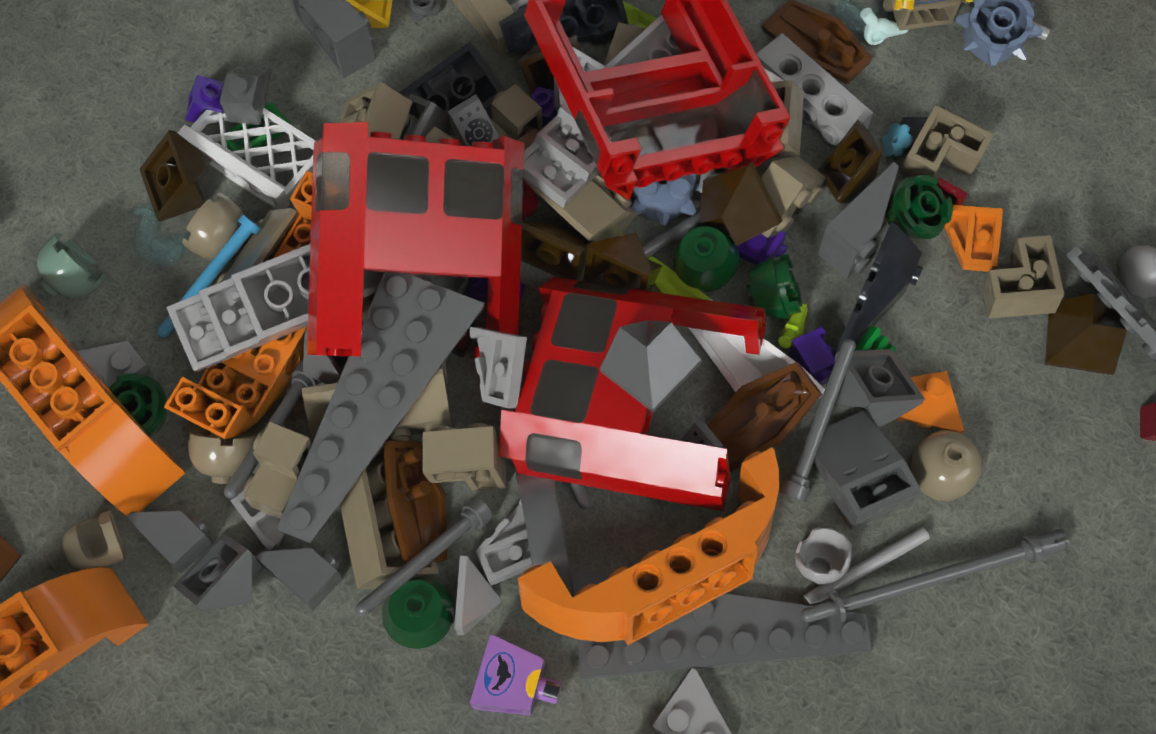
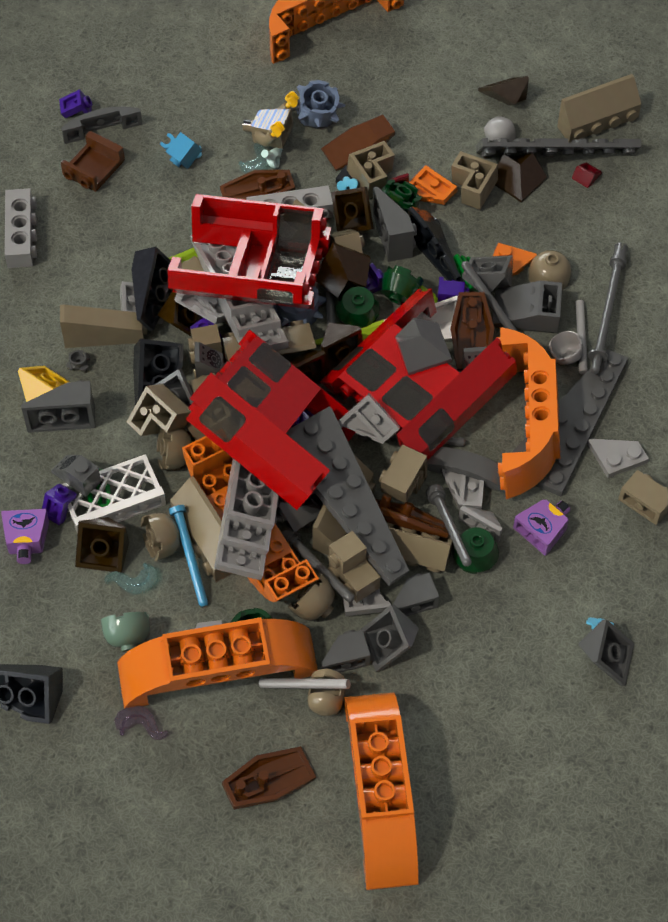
camera: 60 degrees left, 10 degrees down
(90, 523) = (304, 683): none -> light grey bar
(146, 91) = (25, 532): none -> medium lavender torso
(985, 106) = (357, 138): none -> reddish brown piece

